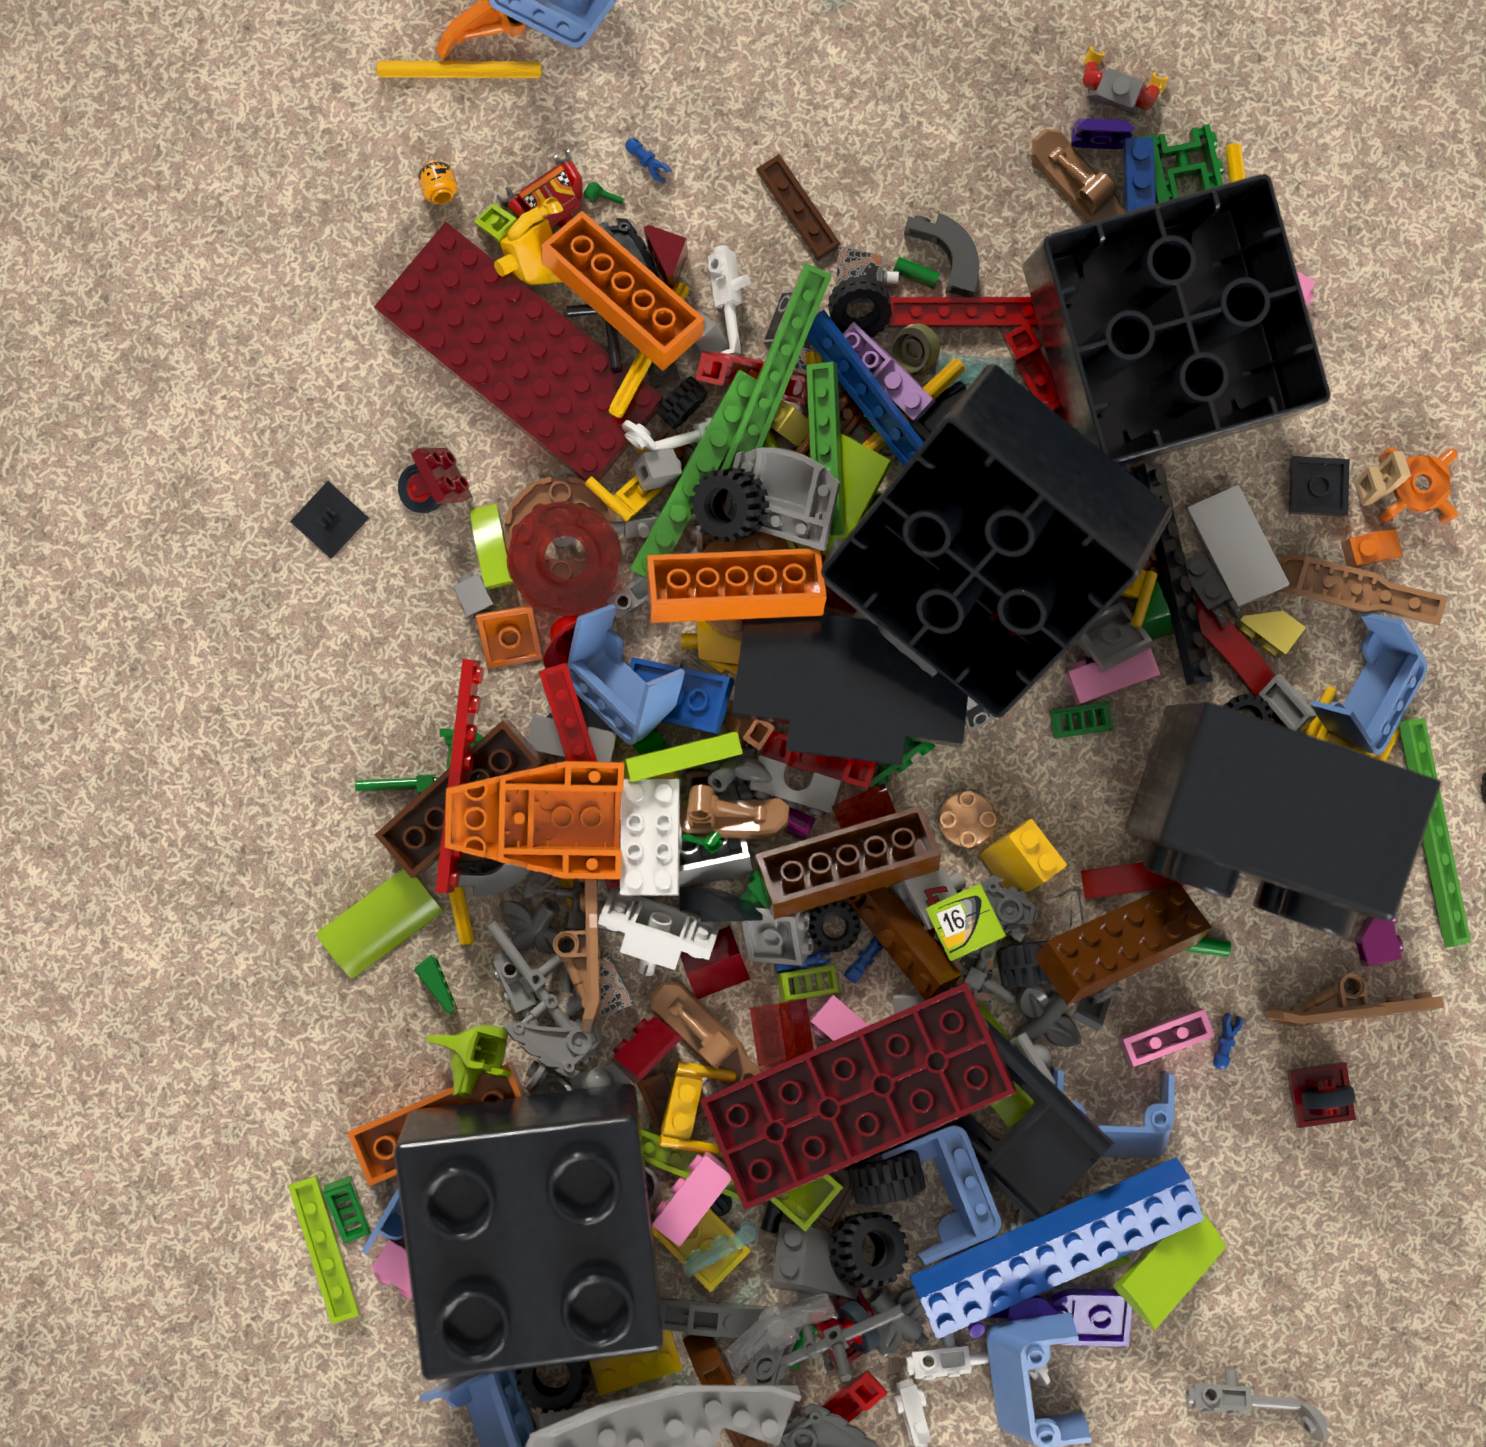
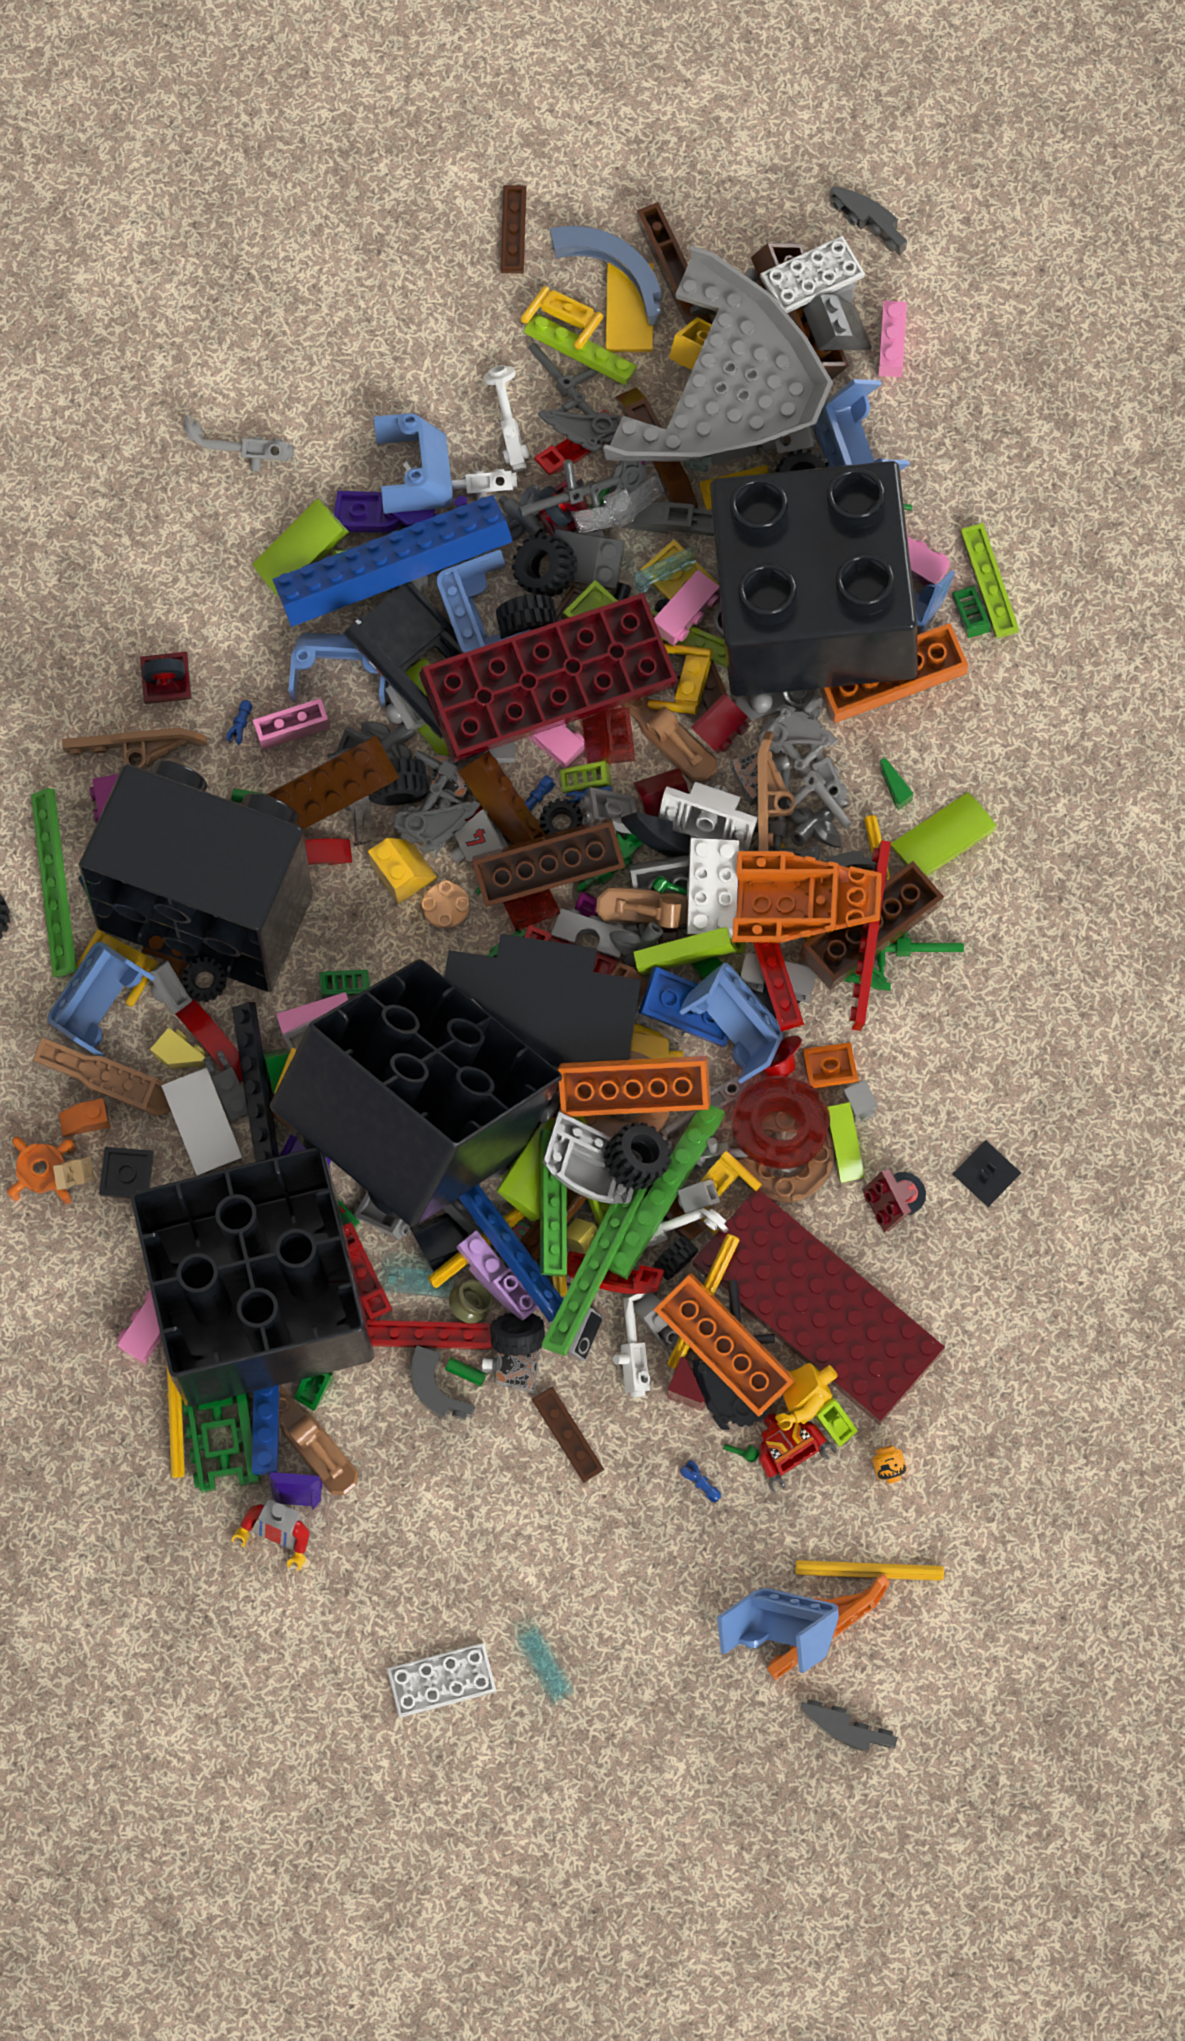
camera: 175 degrees left, 10 degrees down
(472, 1053) = (863, 719): lime piece -> none
(965, 922) = (452, 812): slope -> none

